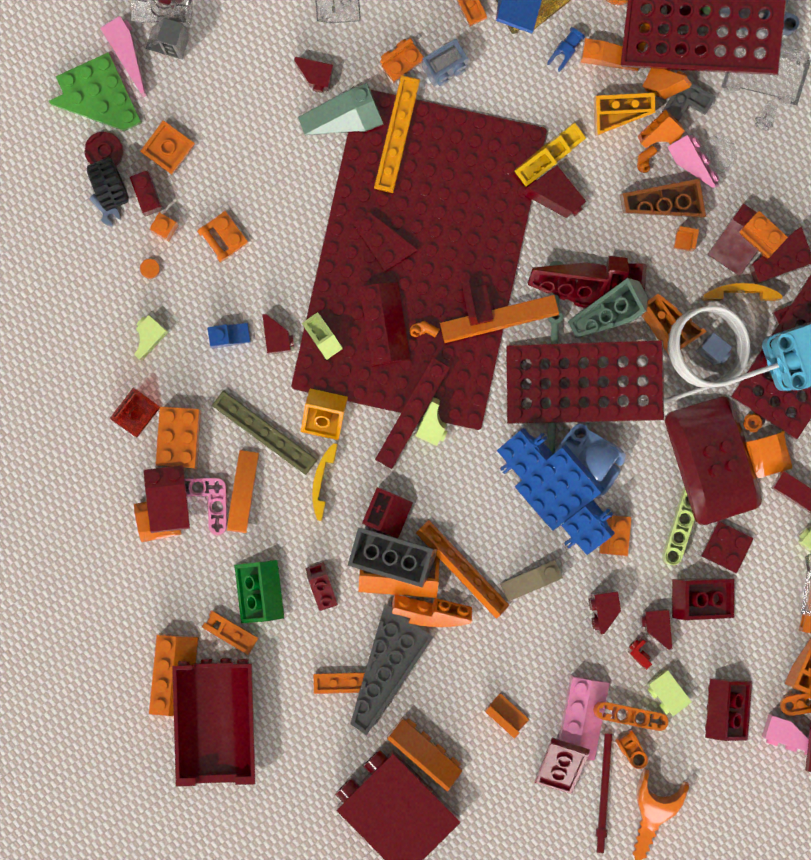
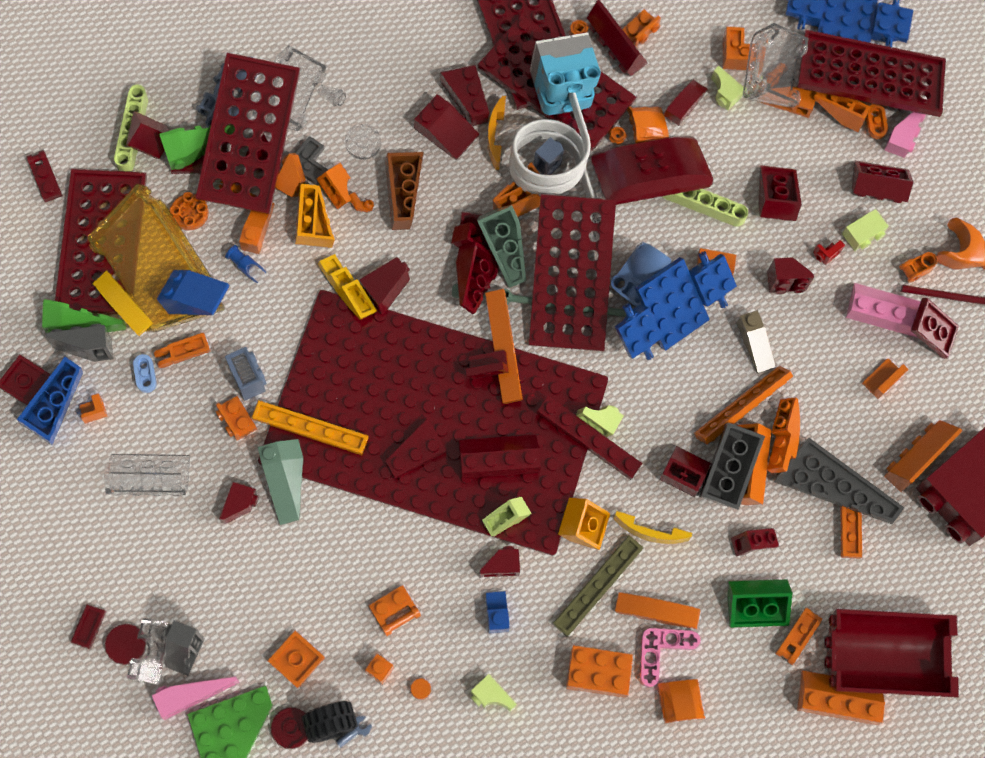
camera: 90 degrees left, 15 degrees down
(135, 412) = (569, 715): clear red slope -> none
(146, 193) = (342, 684): dark red brick -> none
(166, 499) = (664, 685): dark red slope -> none
(422, 328) = (505, 419): orange arm -> none
(630, 718) = (889, 265): orange beam -> none
(658, 626) = (803, 233): dark red slope -> none
(686, 238) = (441, 174): orange panel -> none
(689, 157) = (364, 163): bright pink slope -> none
(727, 547) = (731, 169): dark red plate -> none
(763, 234) = (446, 103): orange plate -> none

